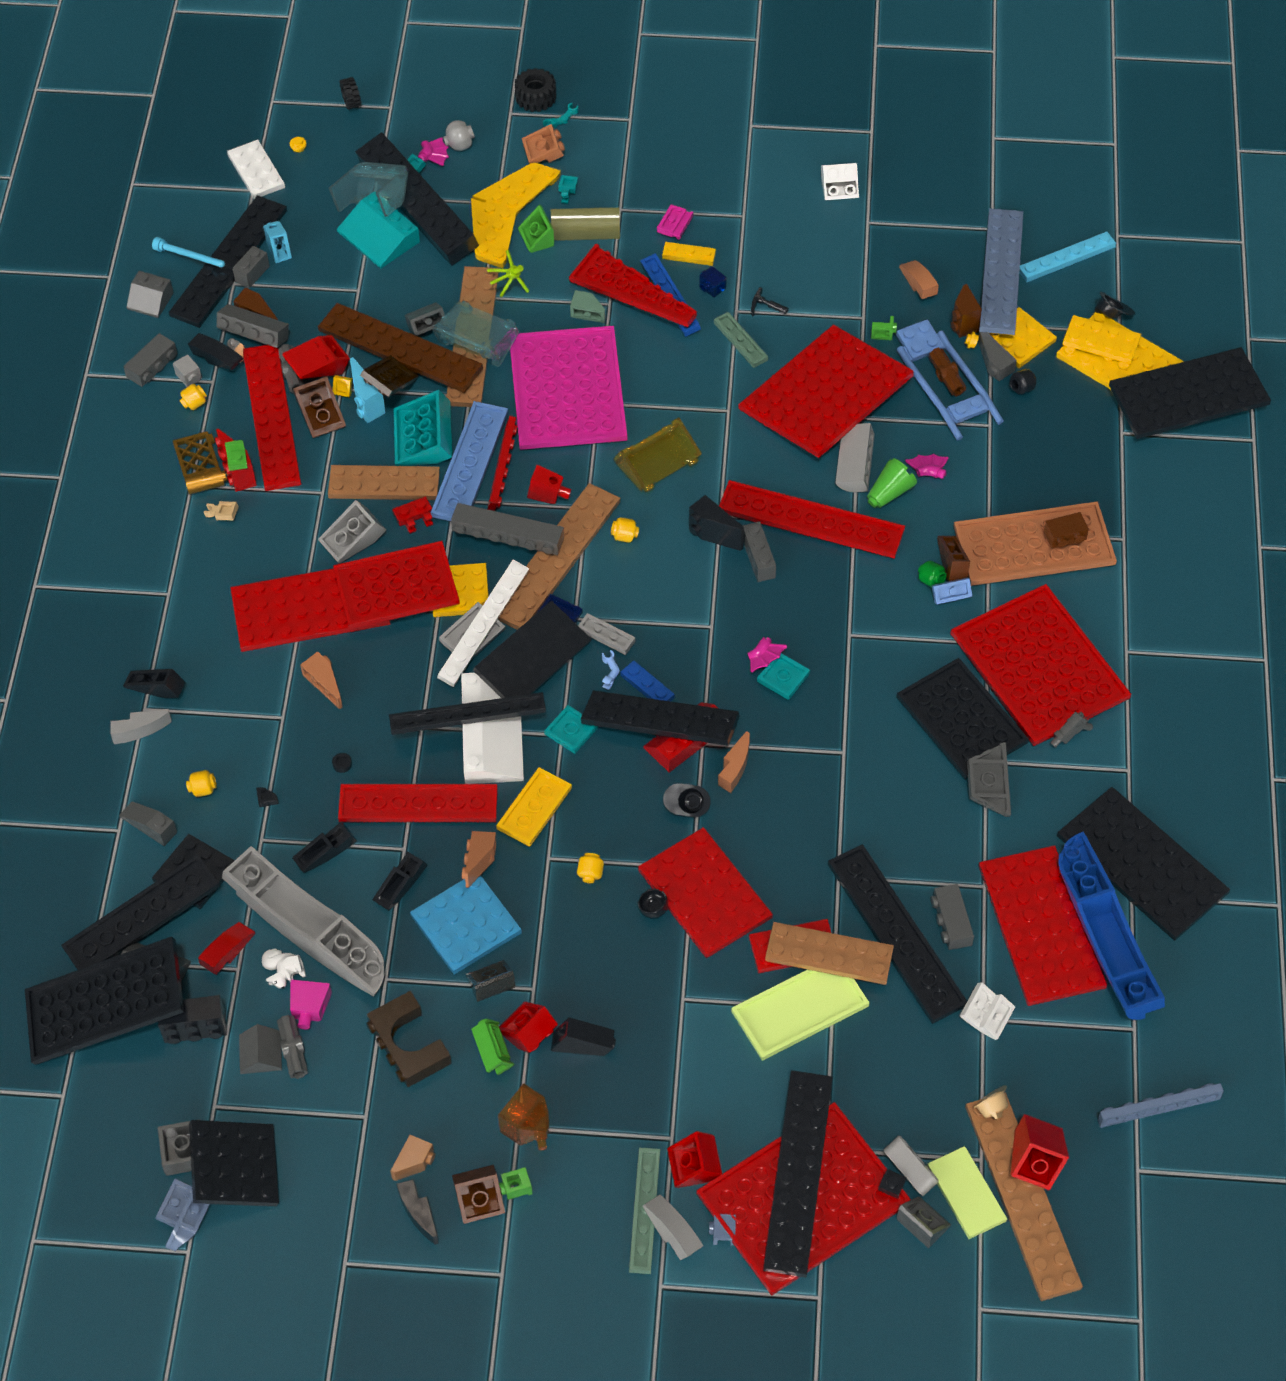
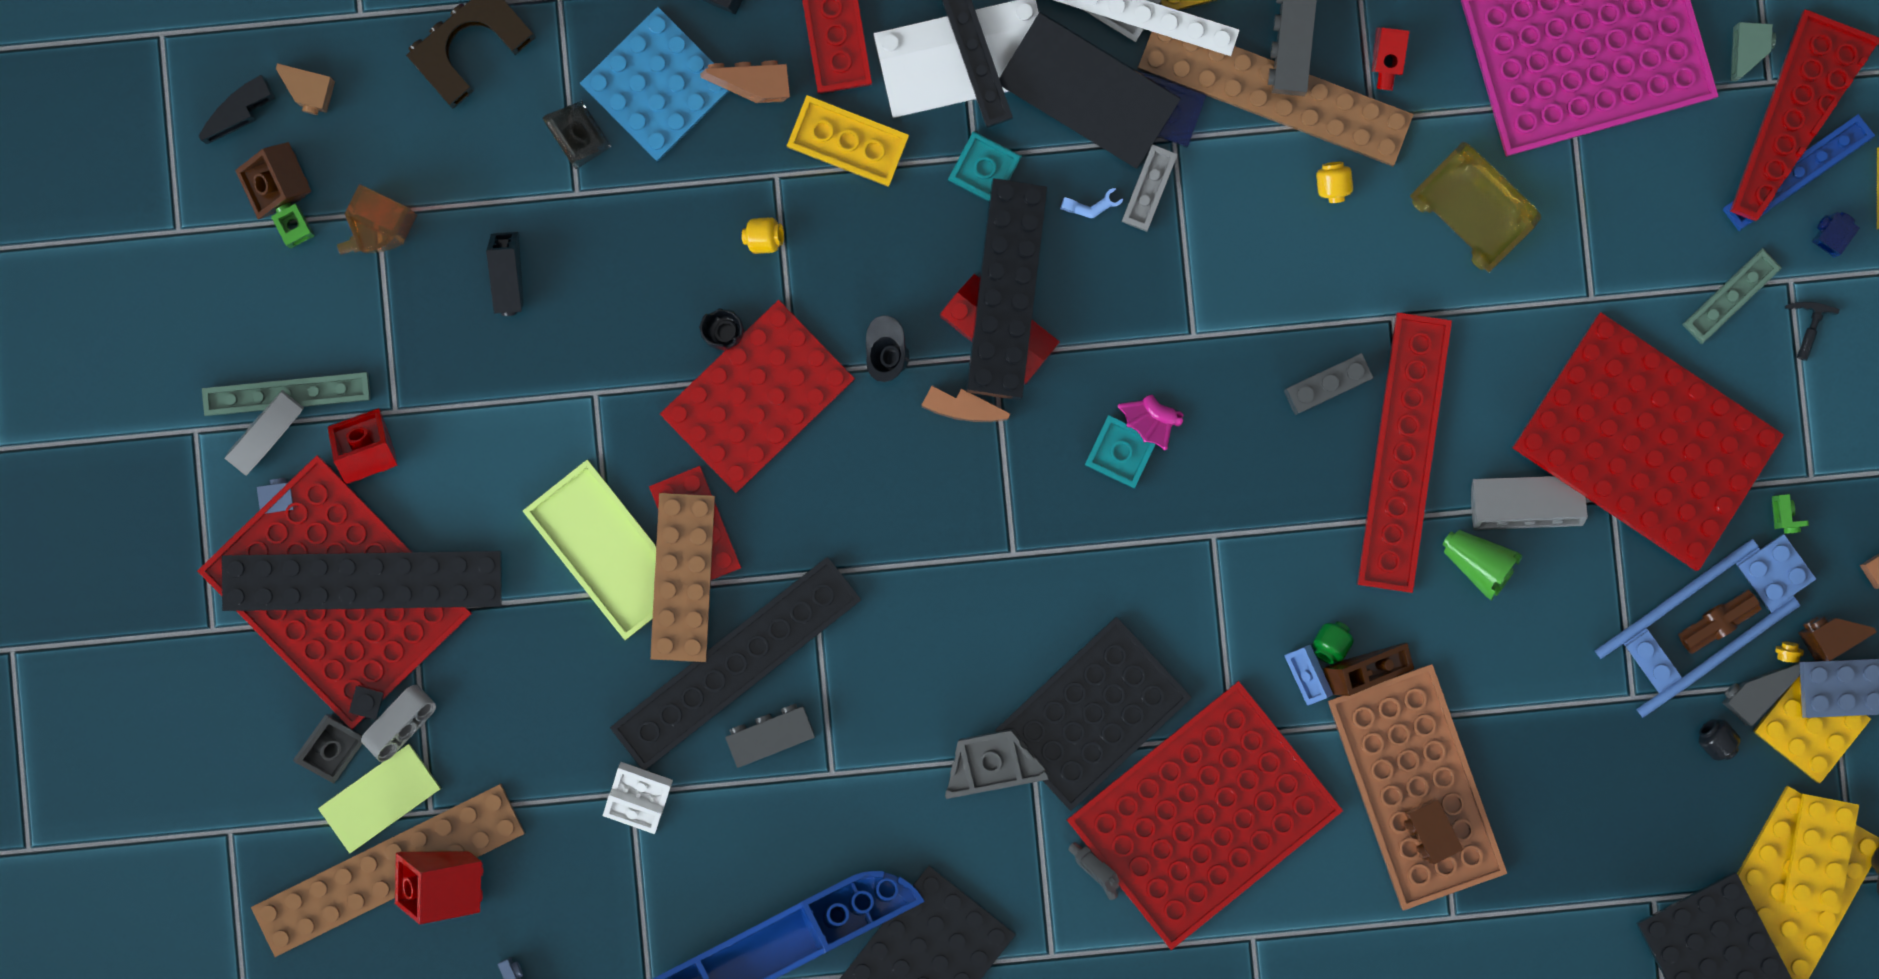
camera: 75 degrees right, 30 degrees up
(492, 1046) = (474, 156): bright green window -> none
(528, 1026) = (514, 196): red slope -> none
(646, 683) = (1076, 261): blue plate -> none
(715, 525) = (1361, 306): black slope -> none
(929, 465) = (1537, 614): dark pink arm -> none
(993, 1103) = (495, 817): tan piece -> none
(1041, 926) = (781, 855): red plate -> none

